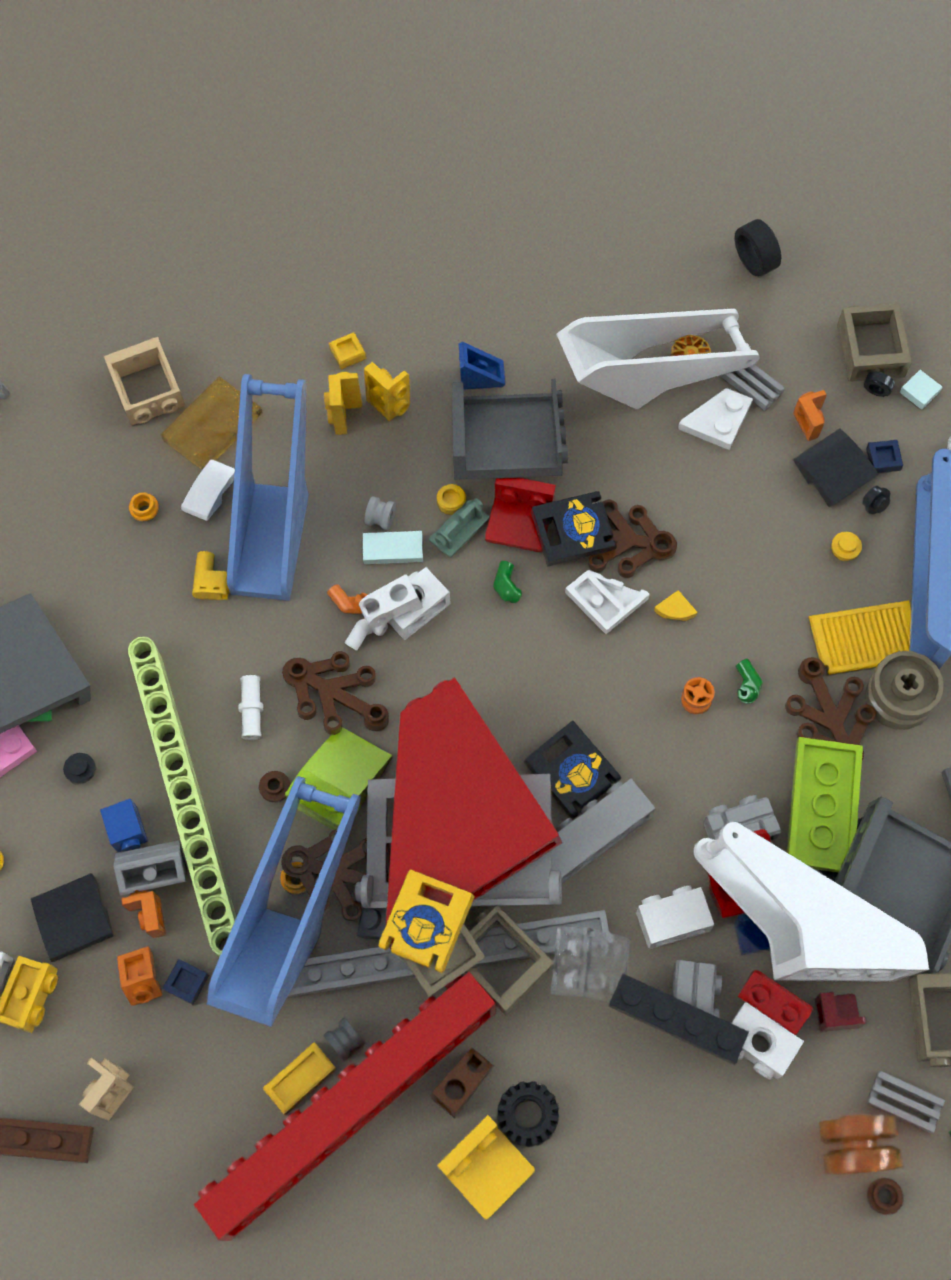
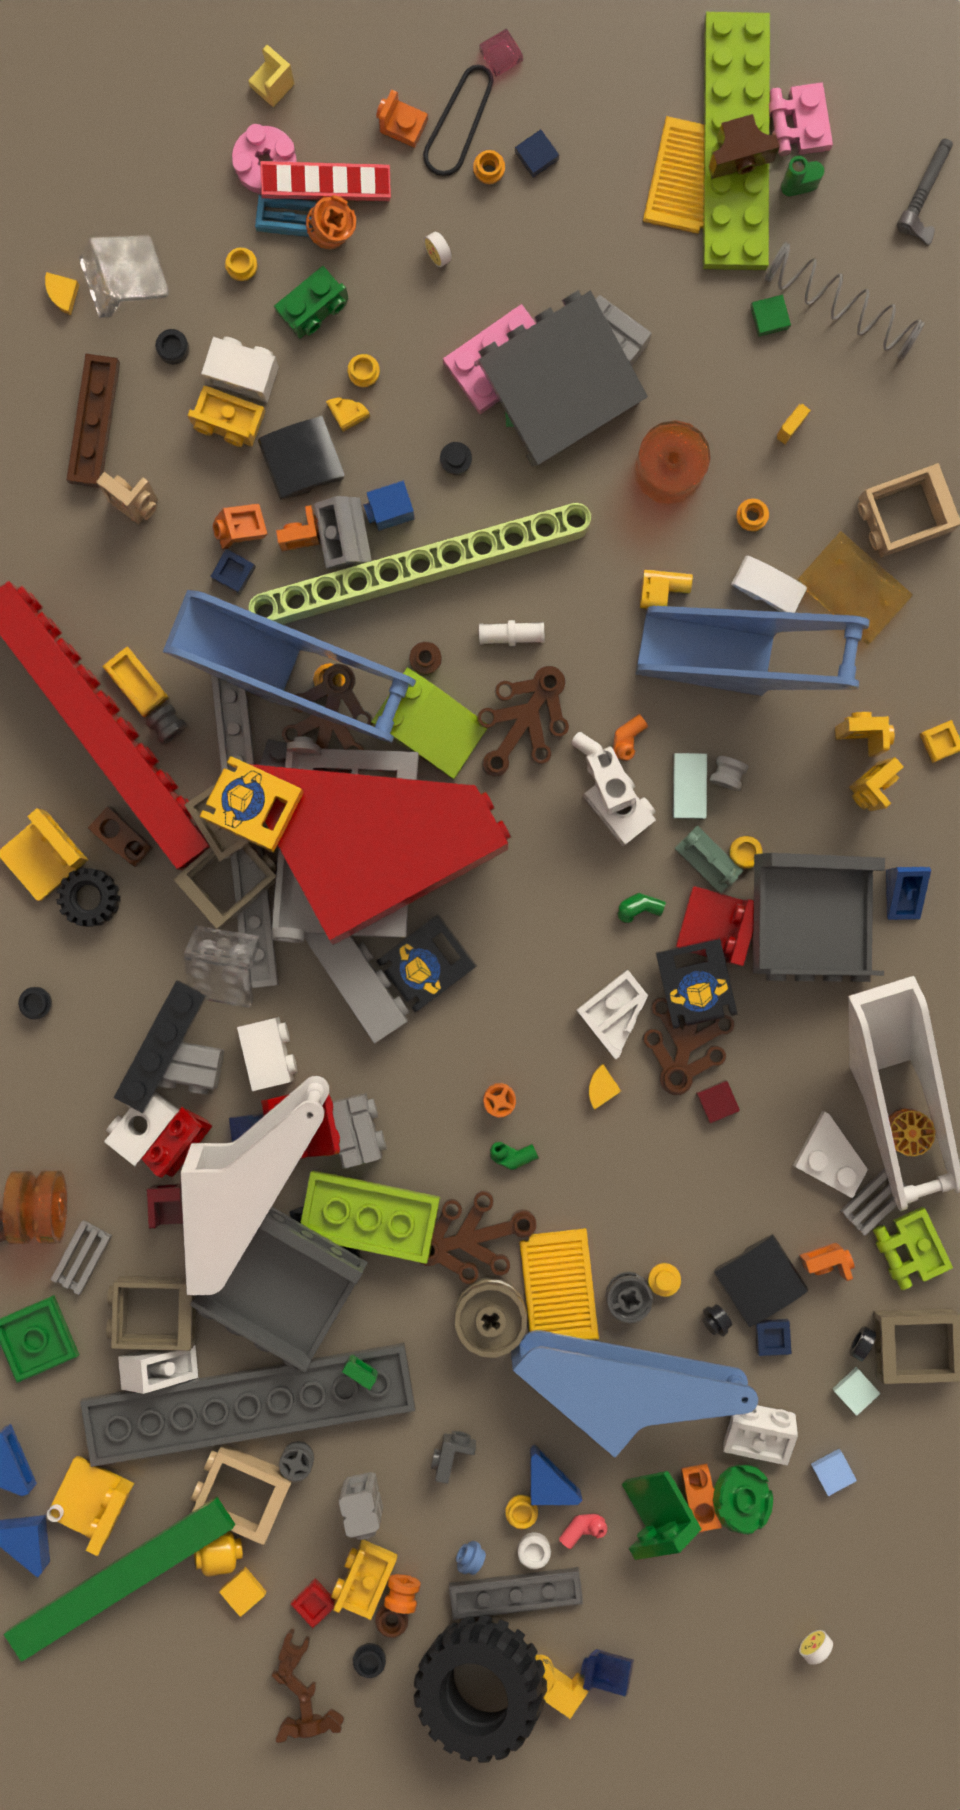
camera: 90 degrees right, 20 degrees up
(28, 876) = (347, 412): none -> yellow tile
(62, 476) = (793, 423): none -> yellow tile
(92, 571) = (677, 443): none -> clear orange wheel
(643, 1168) = (35, 1003): none -> black plate
(679, 510) = (718, 1101): none -> dark red tile
(786, 343) = (921, 1243): none -> lime plate
(867, 573) = (629, 1297): none -> dark grey wheel

